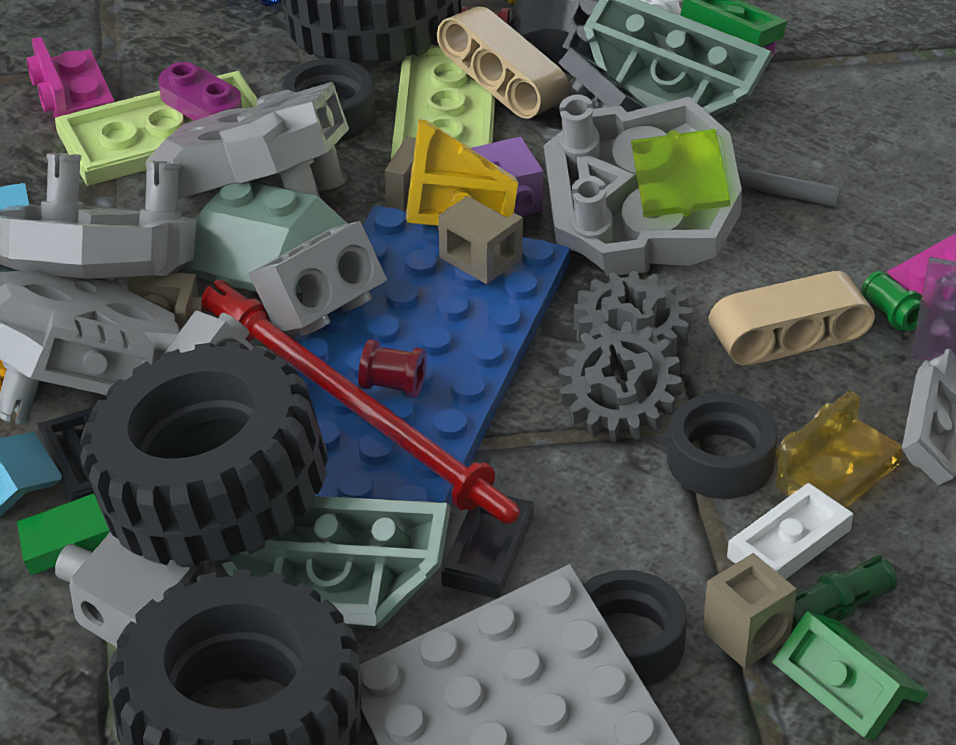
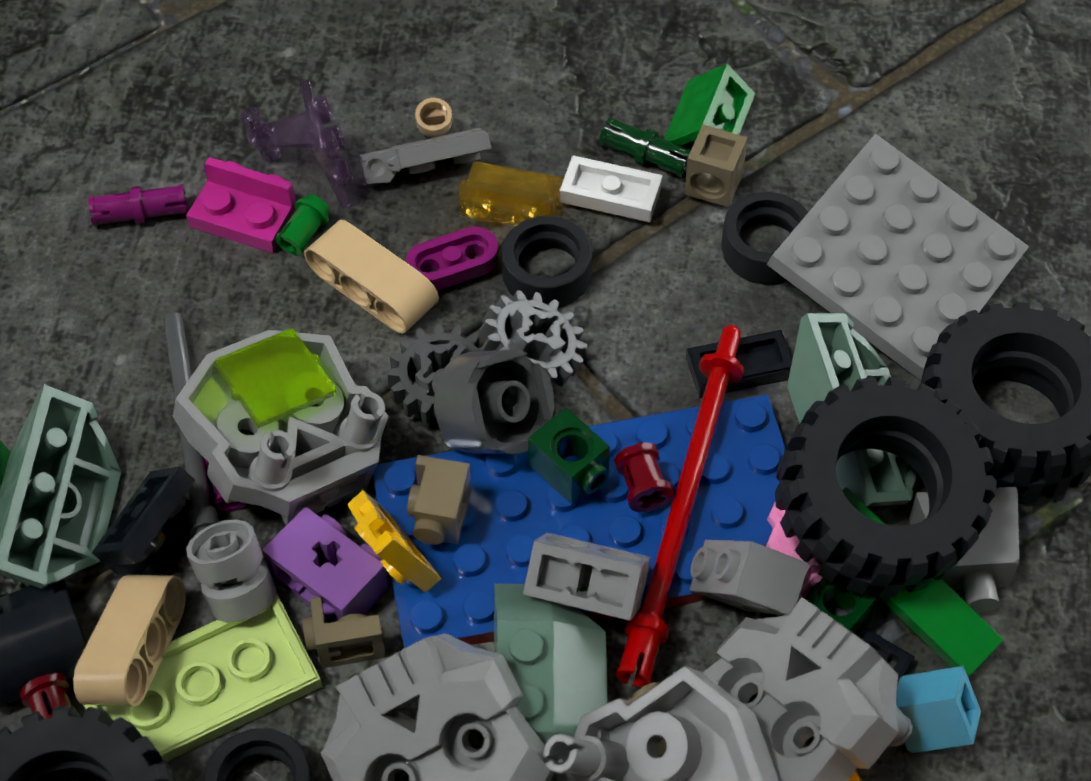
camera: 120 degrees left, 15 degrees up
(454, 329) = (565, 437): none -> dark green brick
(519, 109) = (231, 570): none -> light grey wheel
(548, 292) = (492, 401): none -> dark grey brick
(777, 378) = (451, 254): none -> magenta plate

